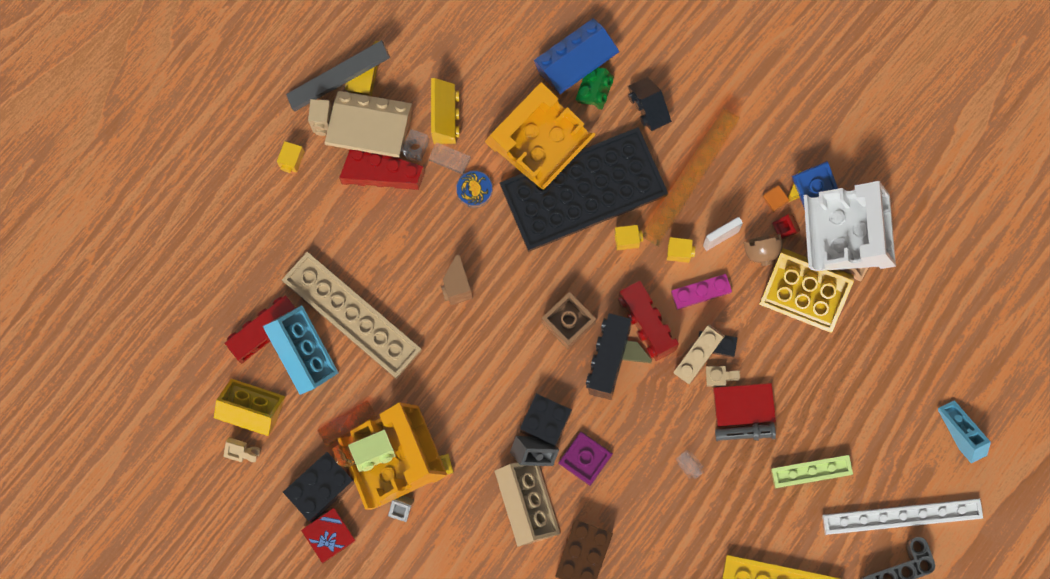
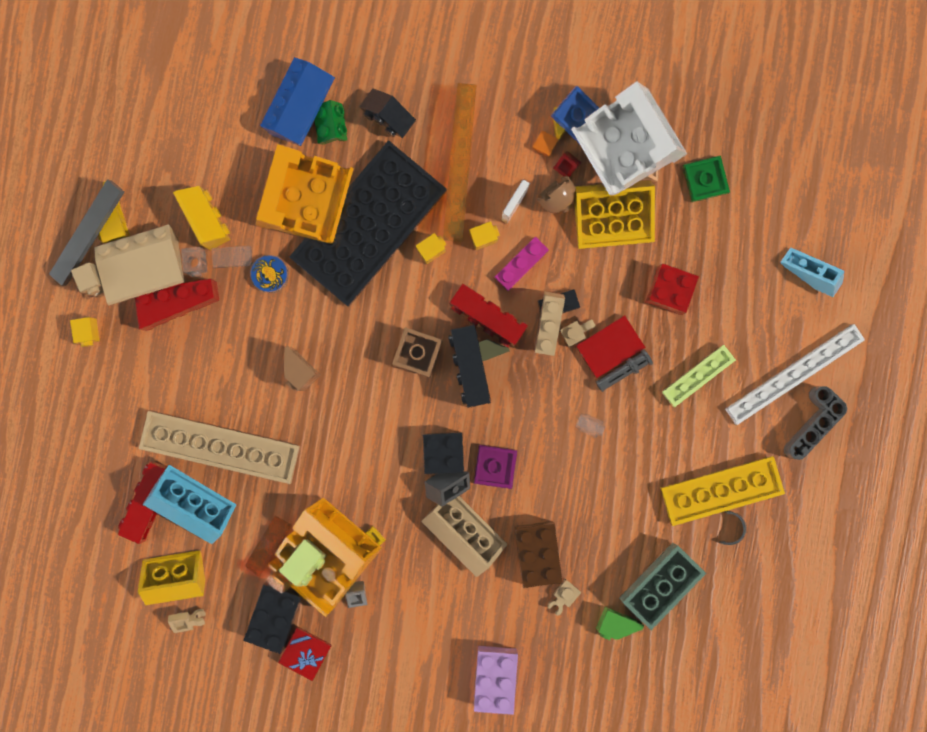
camera: 30 degrees left, 10 degrees up
(825, 381) = (672, 289): none -> red brick
(906, 301) = (706, 179): none -> green tile

